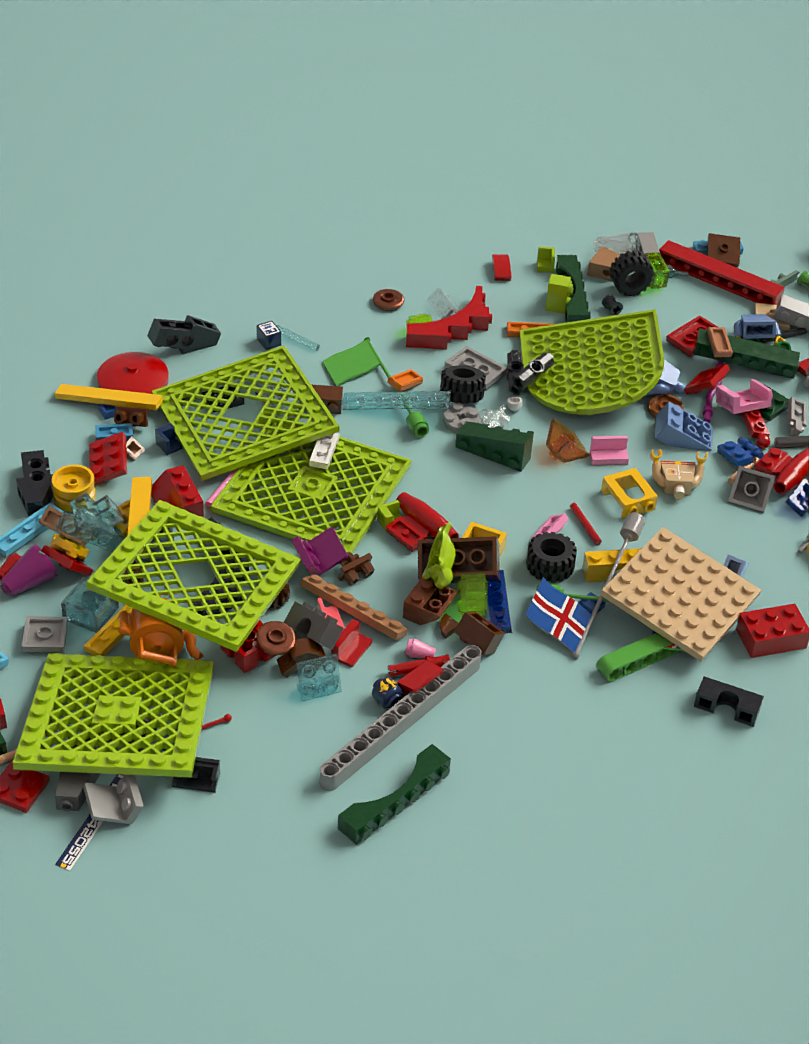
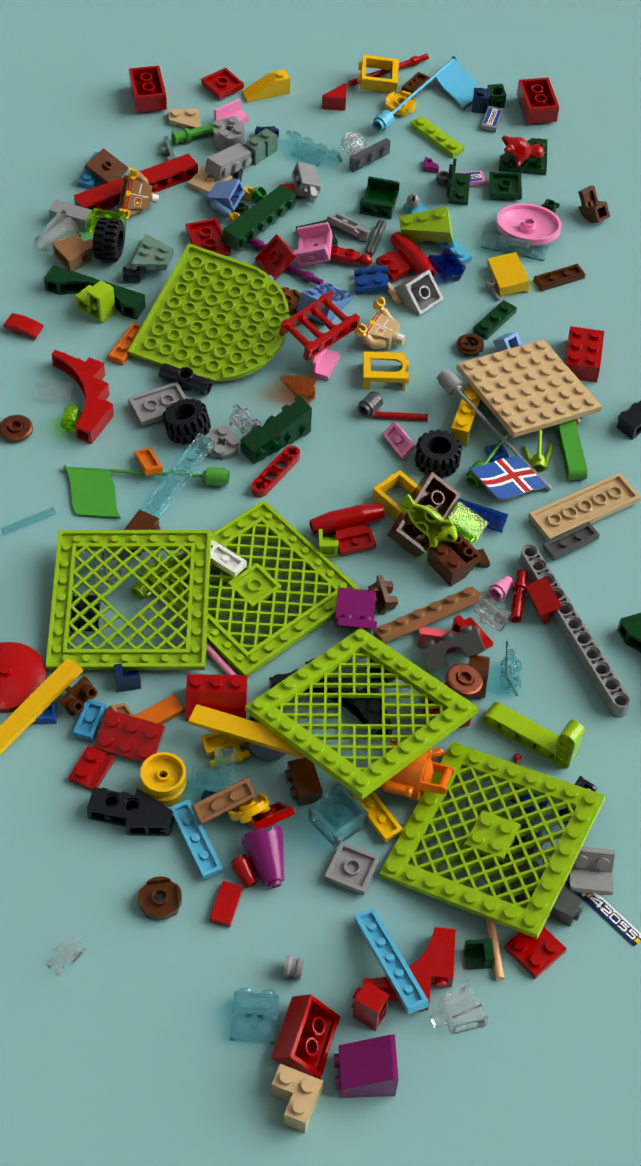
camera: 65 degrees left, 10 degrees up
(69, 451) = (91, 768): none -> red plate
(90, 529) = (252, 774): clear light blue bracket -> none
(140, 468) = (162, 711): none -> orange tile
(250, 724) = (555, 748): none -> lime beam
(269, 335) = (16, 540): dark blue brick -> none
(386, 692) = (544, 628): dark blue head -> none
(388, 644) = (491, 613): none -> clear hips
(428, 455) = (278, 472): none -> red beam
(479, 632) = (506, 537): reddish brown brick -> none
(514, 404) = (222, 397): white hinge -> none
(514, 687) = (571, 541): none -> dark grey plate
(533, 371) = (205, 363): black piece -> none
(546, 259) = (38, 289): lime panel -> none
(567, 687) = (584, 506): none -> tan plate
(580, 495) = (370, 404): none -> dark grey brick
(600, 634) = (538, 461): none -> lime plant
(626, 434) = (323, 340): none -> red fence
(636, 303) = (152, 254): none -> sand green wing
(701, 272) = (135, 193): none -> medium nougat torso
(717, 540) = (474, 340): none -> reddish brown gear
(719, 342) = (248, 224): nougat tile -> none
(768, 555) = (494, 319): none -> dark green plate

